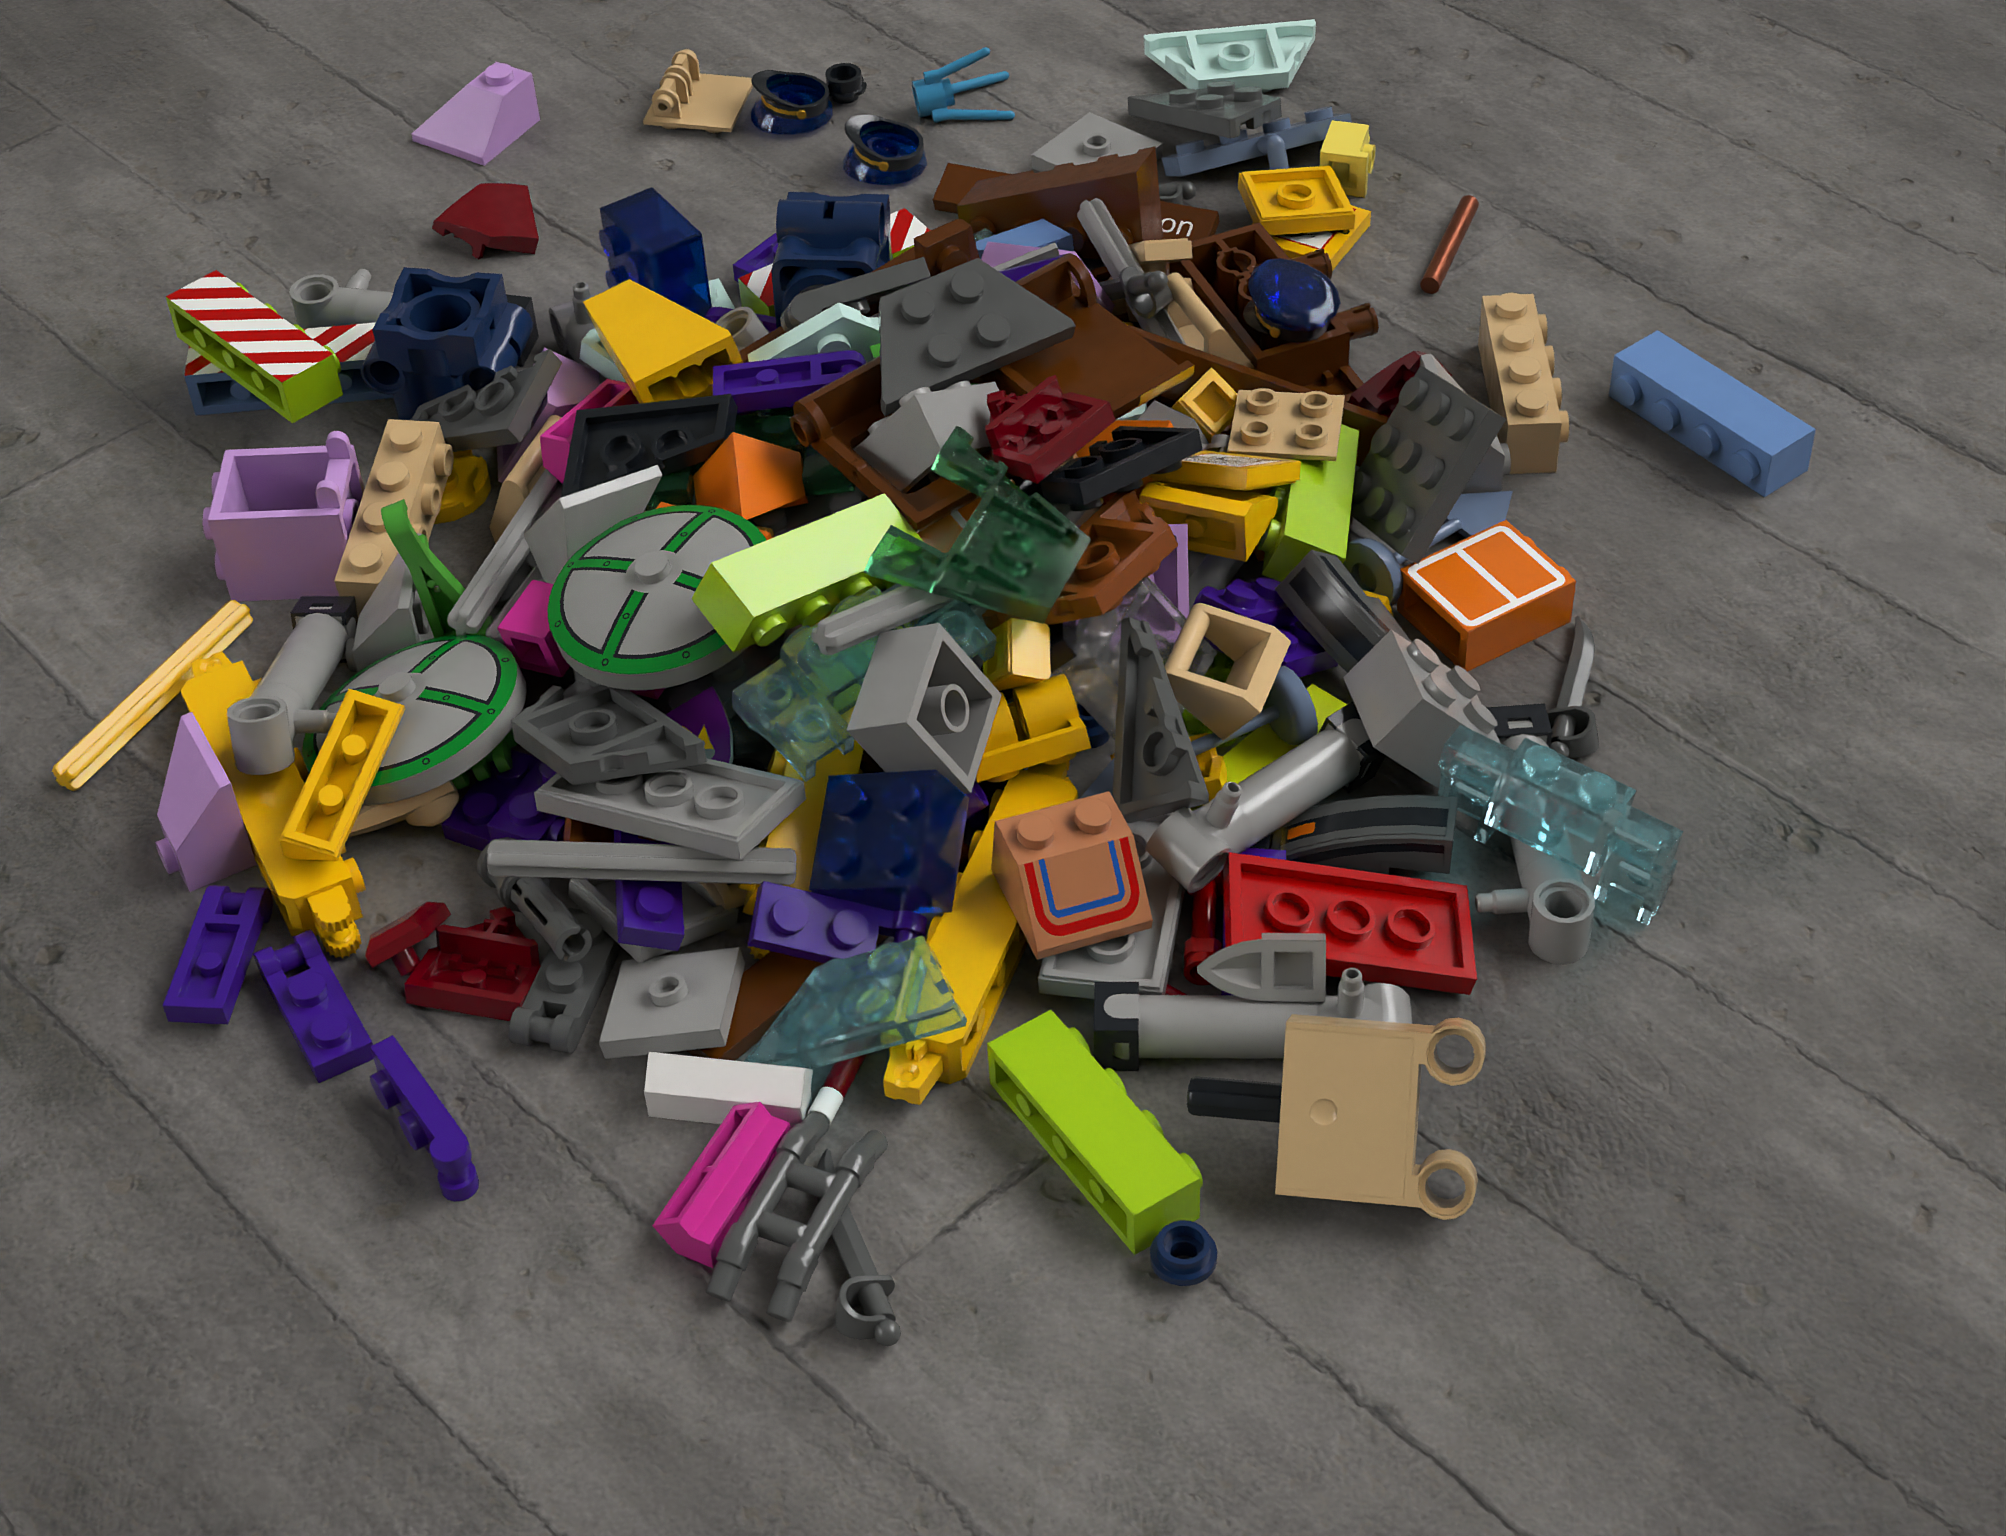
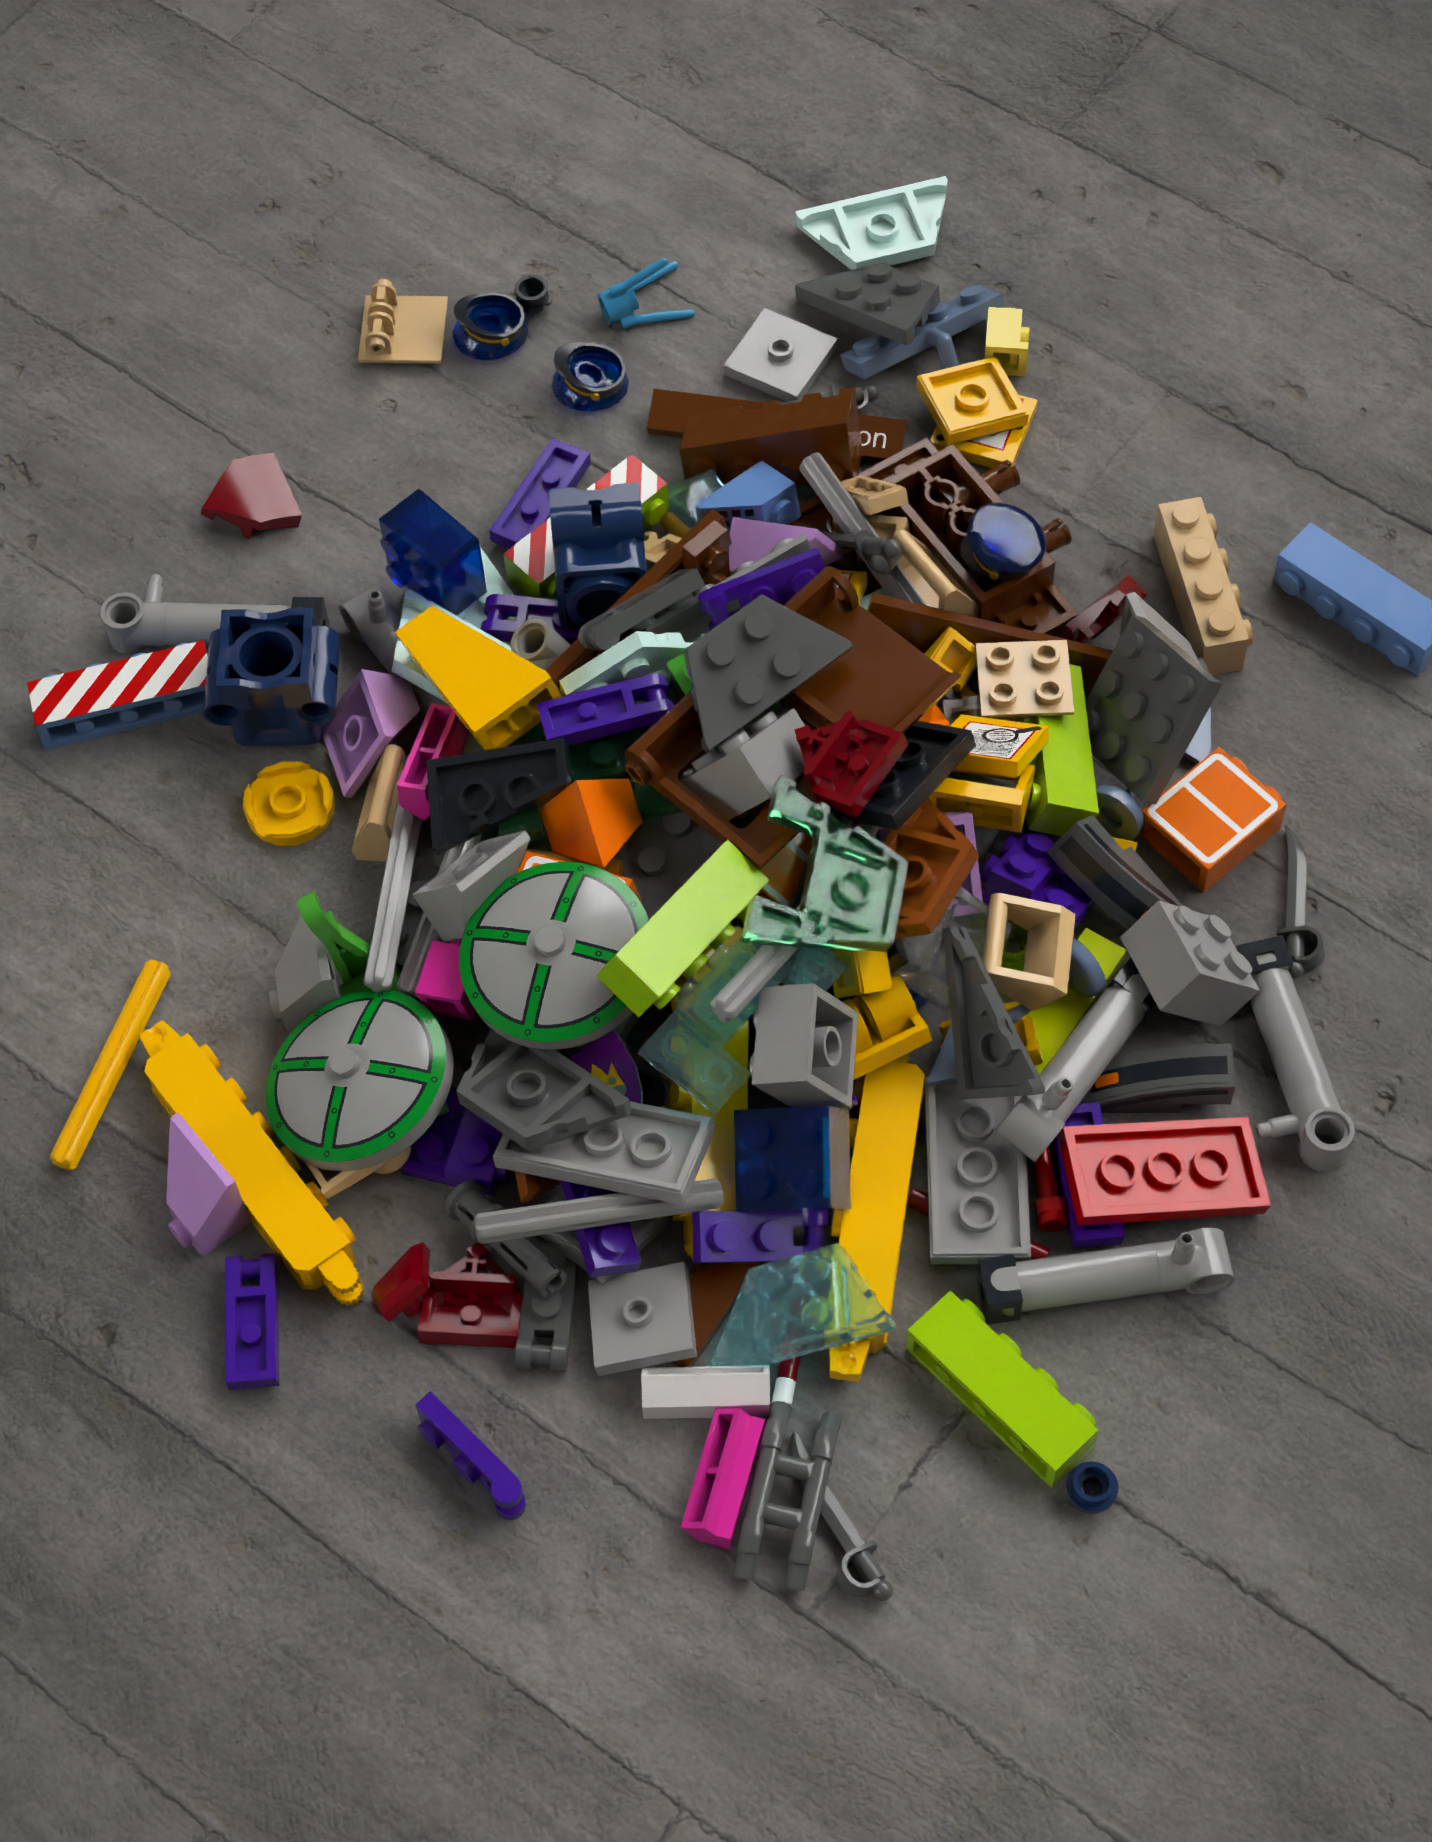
camera: 10 degrees left, 15 degrees up
(255, 346) = (97, 692): brick -> none
(283, 518) = (201, 877): lavender container -> none
(283, 699) = (243, 1058): light grey piece -> none
(315, 1007) = (346, 1359): dark purple plate -> none
(340, 777) = (324, 1157): yellow slope -> none
(408, 466) = (273, 859): tan brick -> none
(483, 115) = (205, 372): lavender slope -> none
(496, 413) = (325, 747): dark grey wing -> none
(1071, 874) = (943, 1168): nougat slope -> none
(1271, 968) = (1124, 1233): light grey plate -> none
(1352, 1110) = (1208, 1355): tan piece -> none
(1449, 244) = (1110, 427): copper bar -> none
(1562, 812) = (1318, 1052): clear light blue bracket -> none

